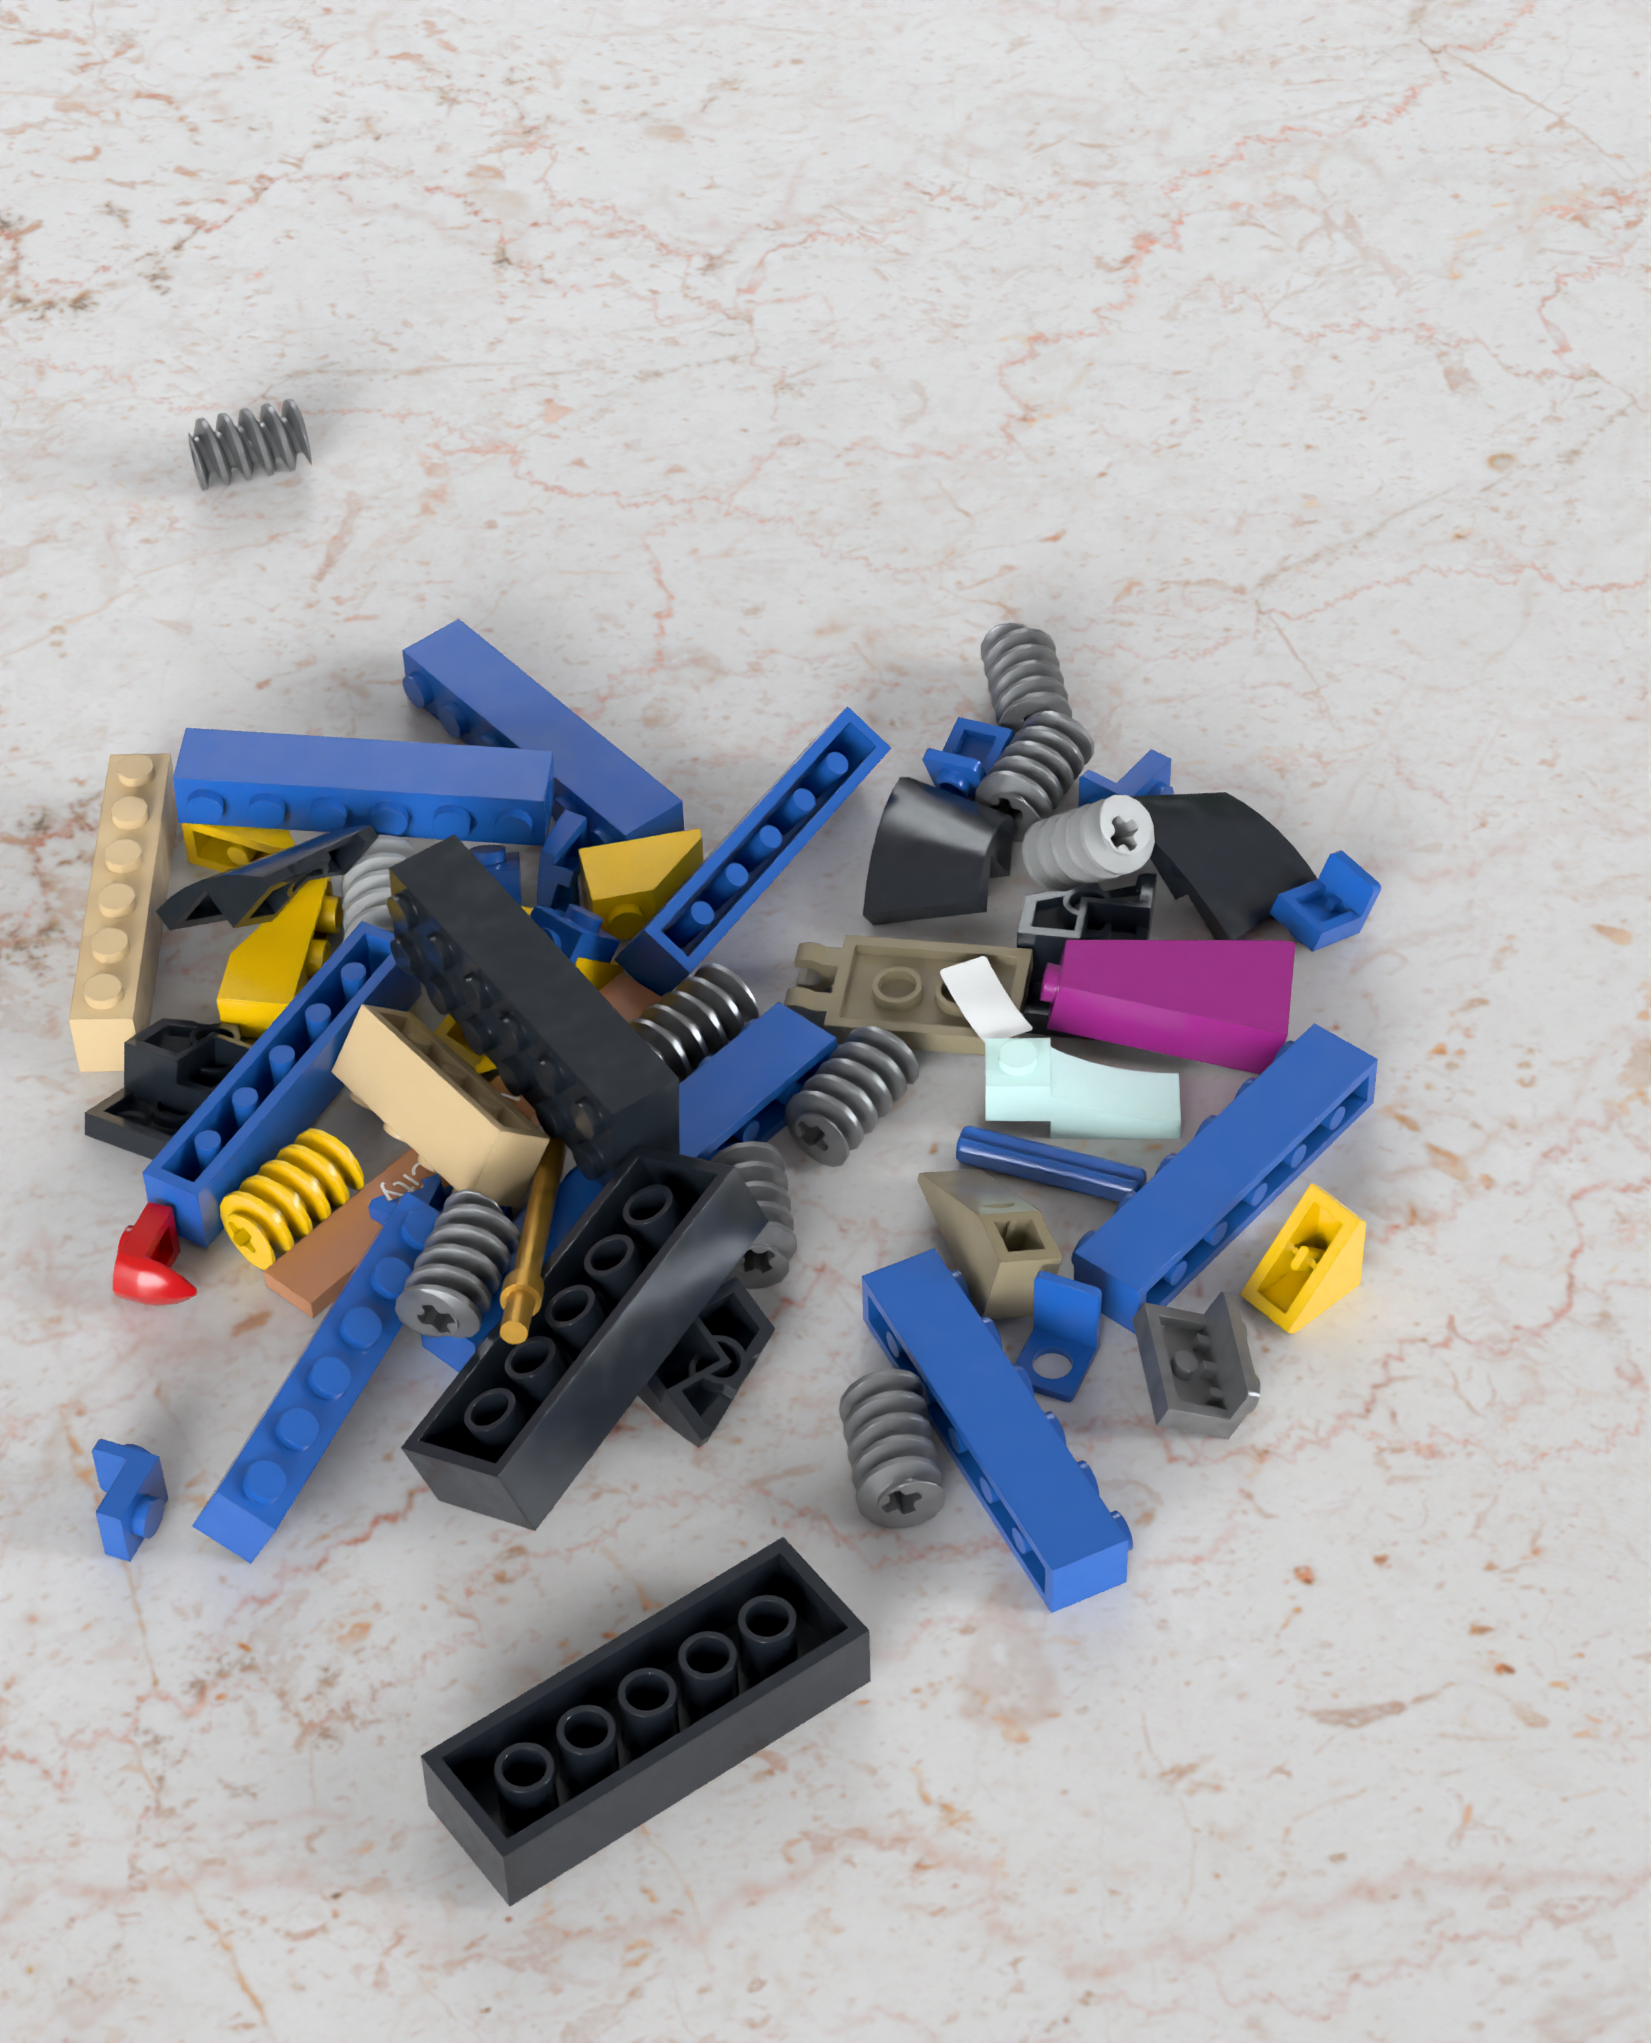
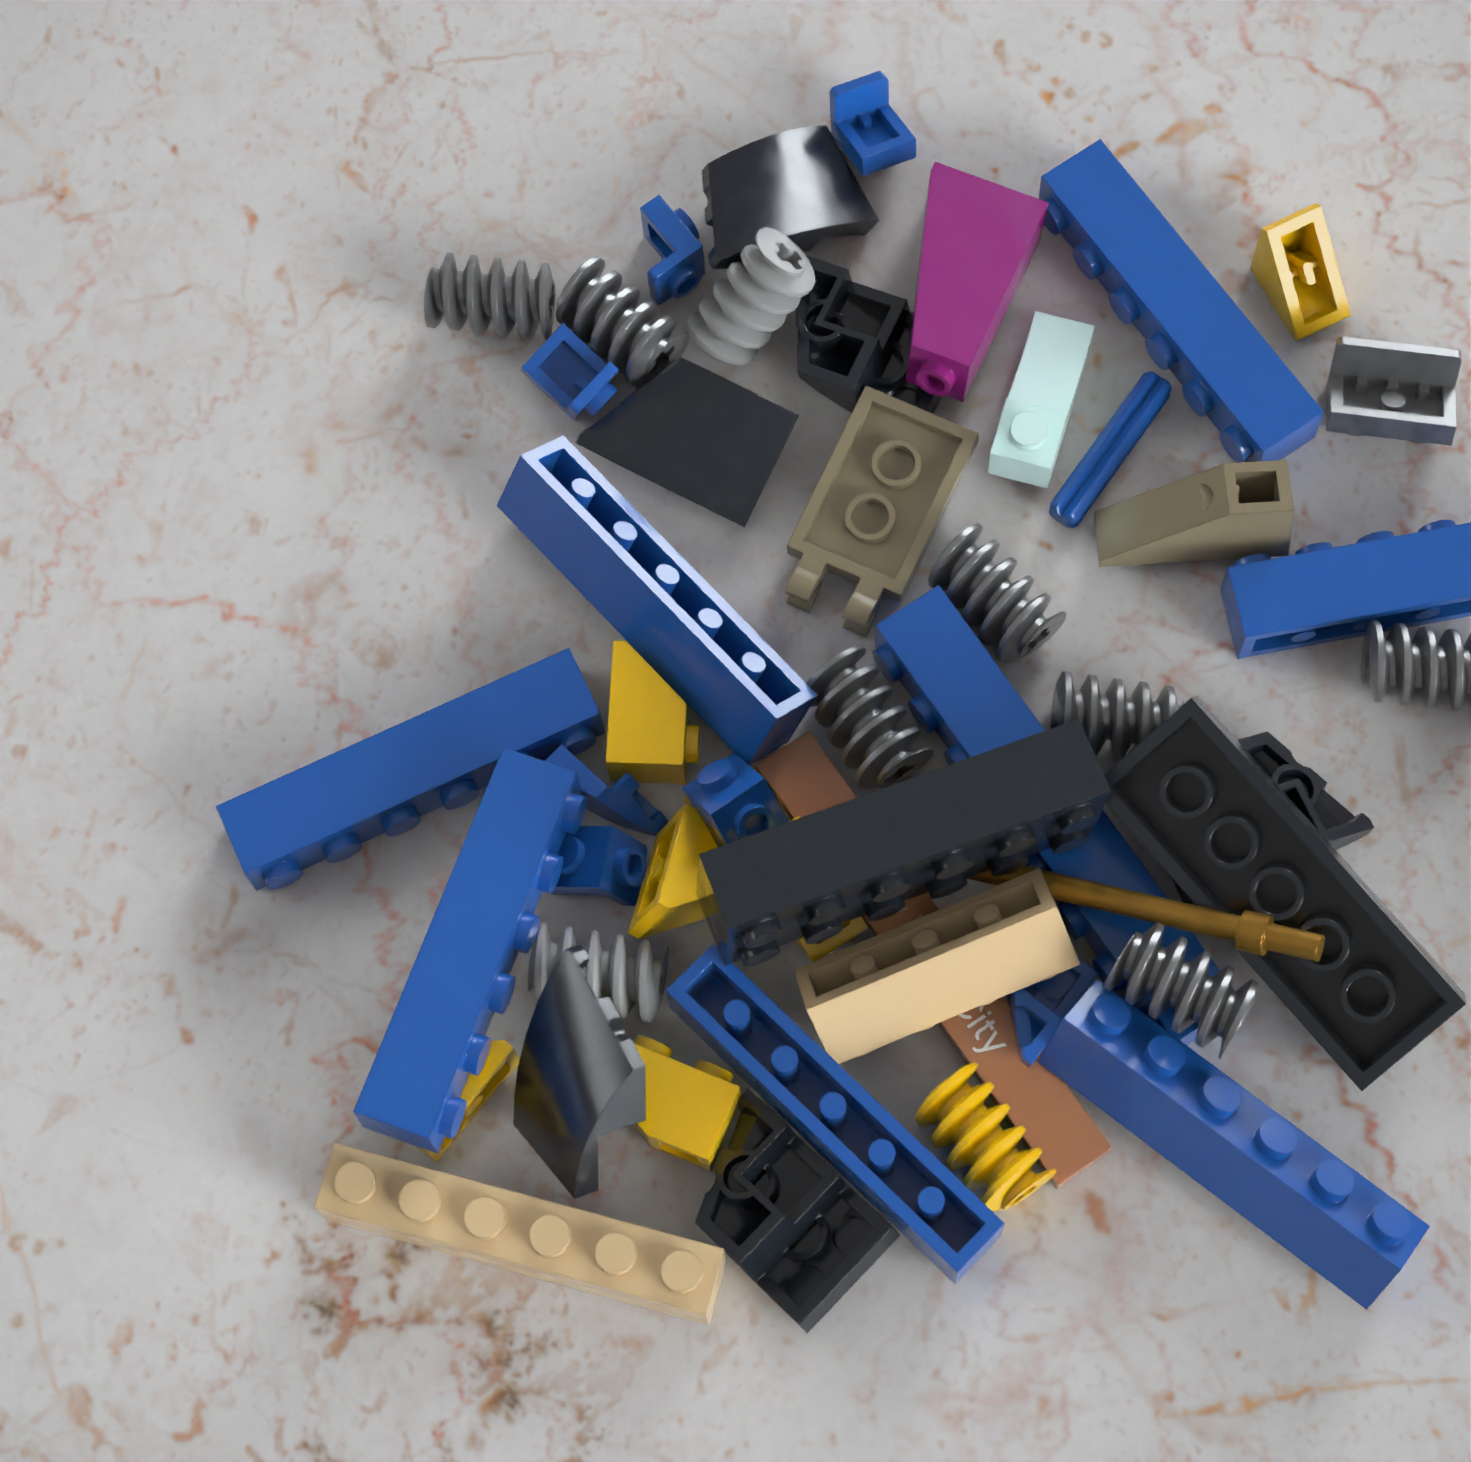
camera: 70 degrees left, 25 degrees up
(133, 1496) = (1333, 1359): blue bracket -> none
(146, 1260) = (1011, 1296): red plate -> none
(984, 1000) = (928, 443): white sticker -> none
(1063, 1324) = (1315, 486): blue bracket -> none

